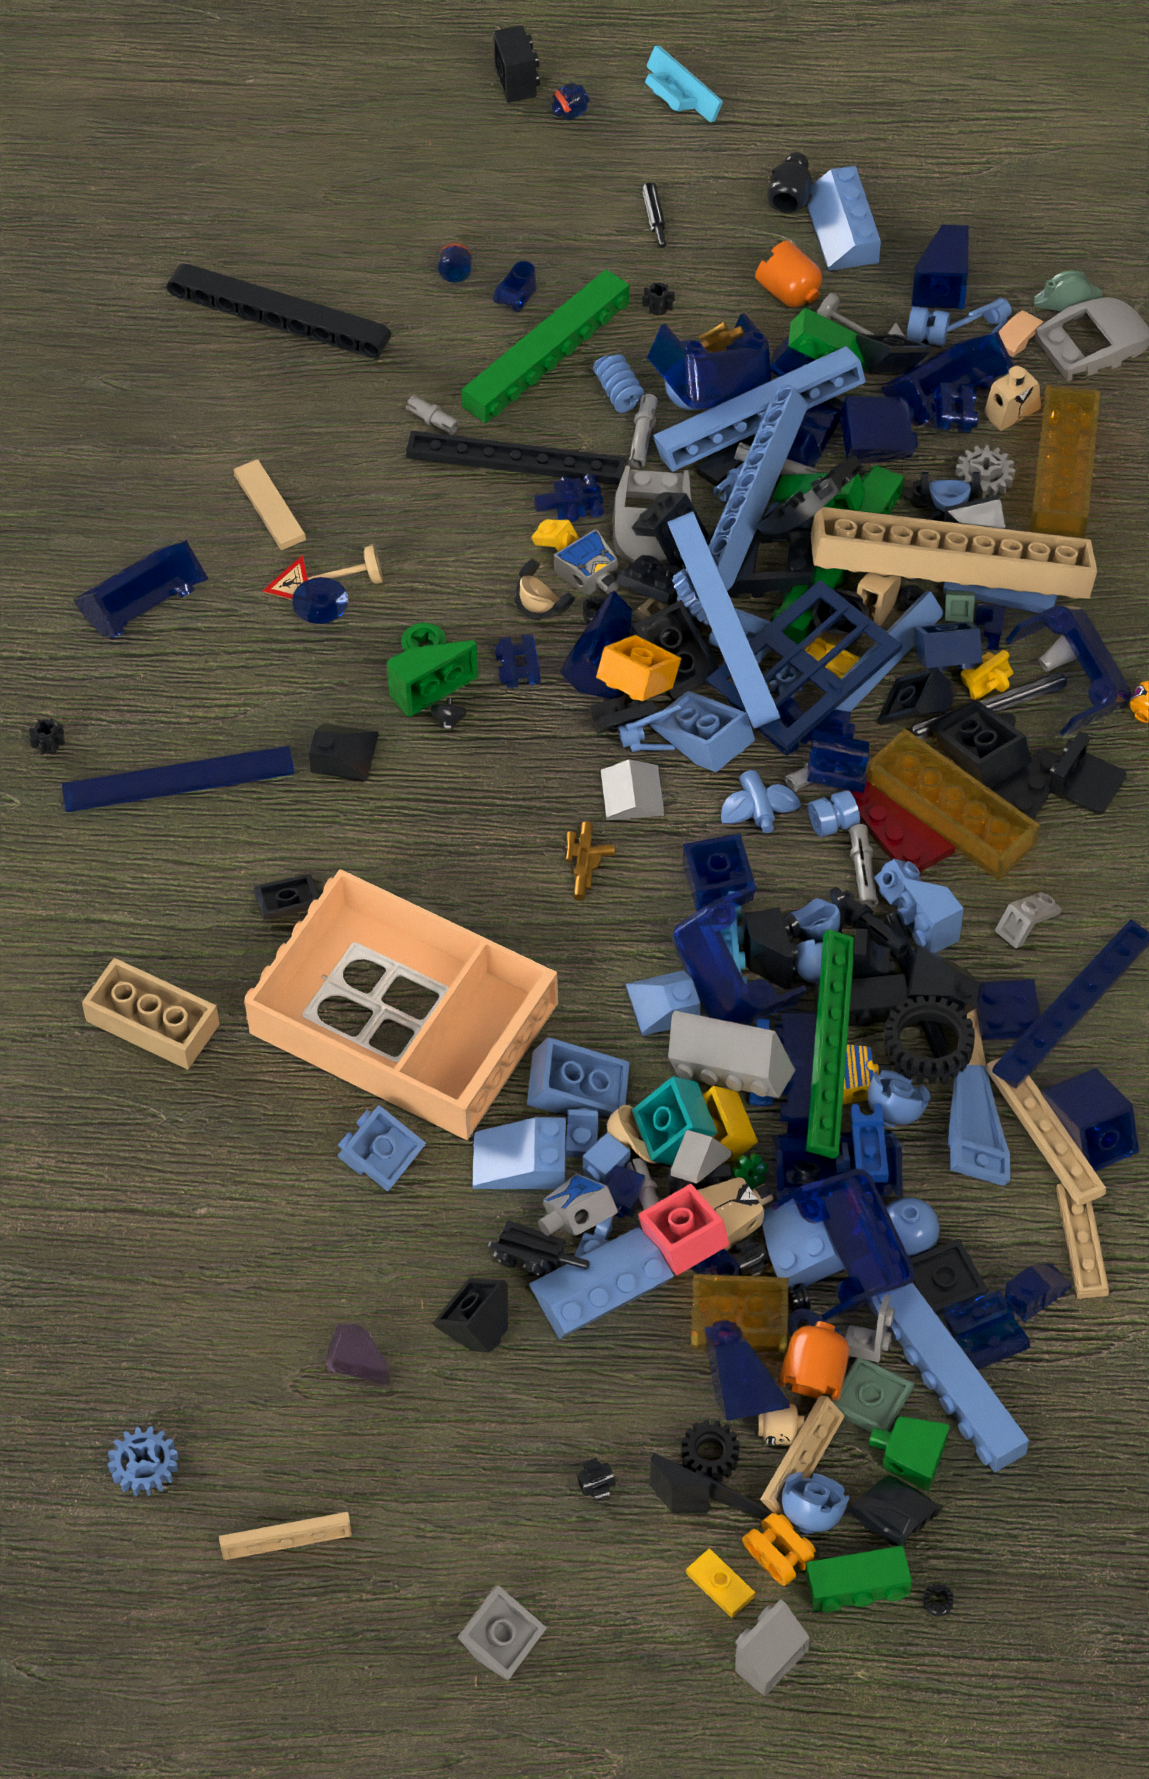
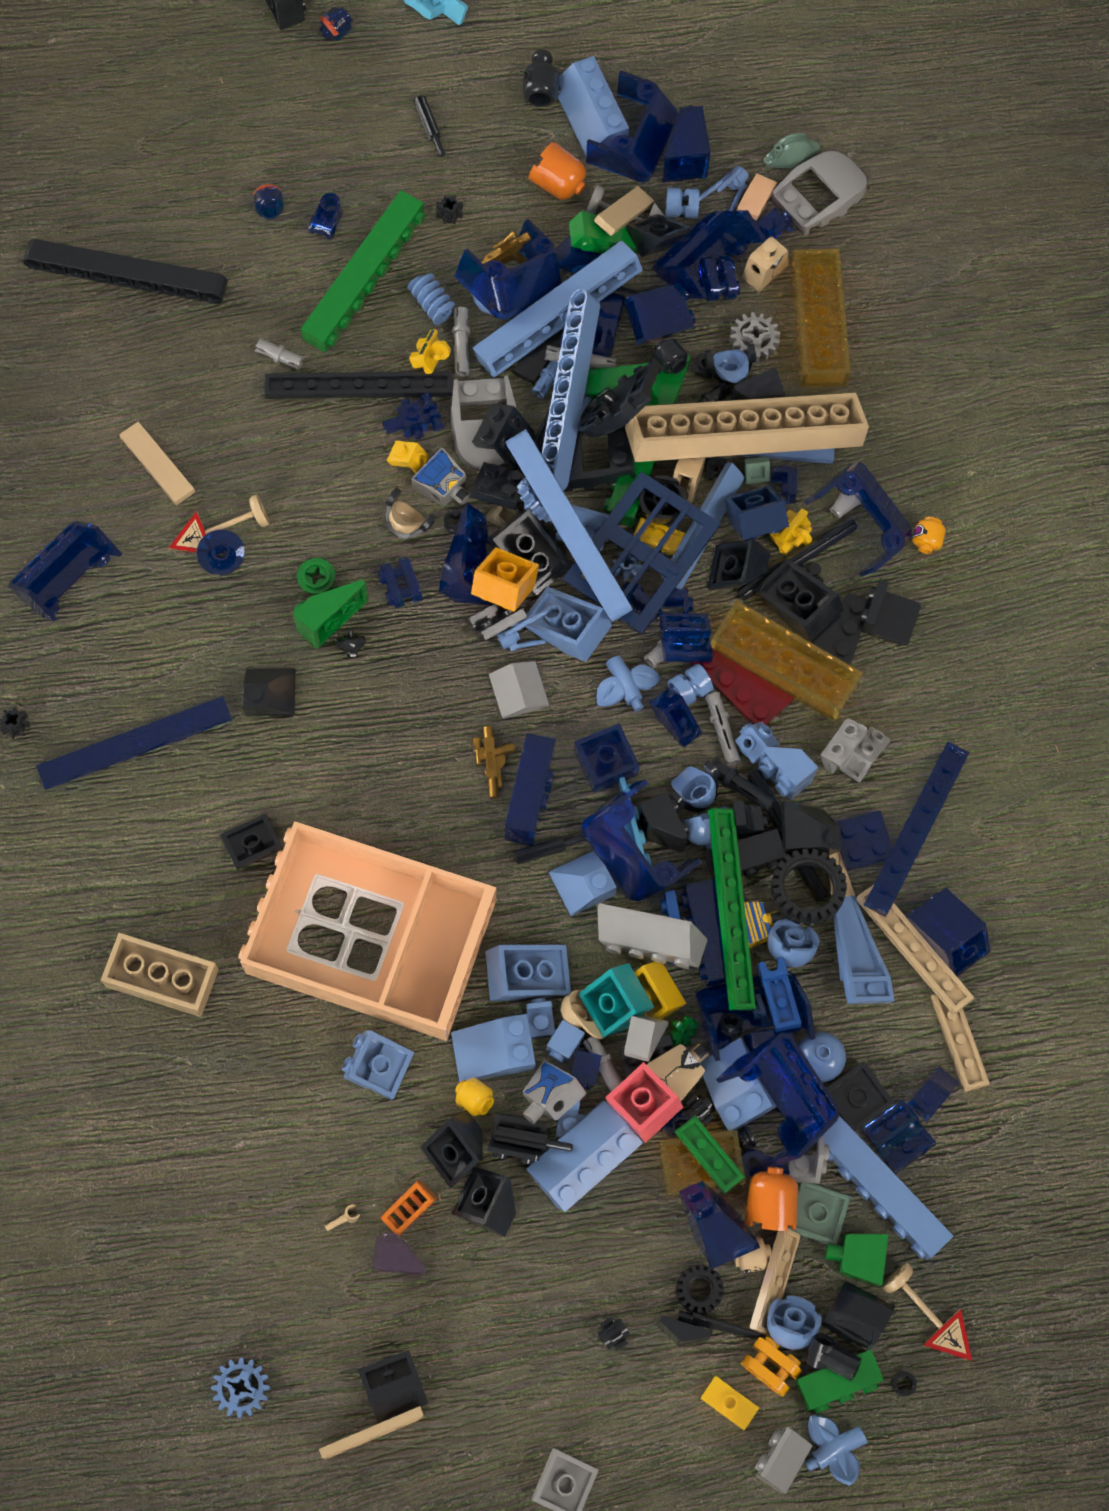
camera: 15 degrees left, 15 degrees up
(308, 1305) = (343, 1218): none -> tan hand
(321, 1483) = (393, 1386): none -> black slope
(386, 1292) = (425, 1191): none -> orange slope
(450, 1248) = (455, 1147): none -> black slope
(486, 1201) = (474, 1096): none -> yellow head
(603, 434) = (430, 352): none -> yellow hips
(621, 889) = (530, 789): none -> clear blue brick
(628, 958) = (545, 848): none -> black axle
(749, 1297) = (709, 1154): none -> green tile
(810, 844) = (676, 716): none -> clear blue slope
(837, 1652) = (835, 1449): none -> medium blue plant
(846, 1538) = (825, 1354): none -> black piece
(857, 320) = (624, 210): none -> tan tile
(879, 470) = (670, 356): none -> black head
(887, 271) = (639, 155): none -> clear blue windscreen
(993, 904) = (842, 744): none -> light grey bracket
(1005, 1557) = (950, 1336): none -> tan piece
(1034, 360) = (775, 223): none -> clear blue bracket

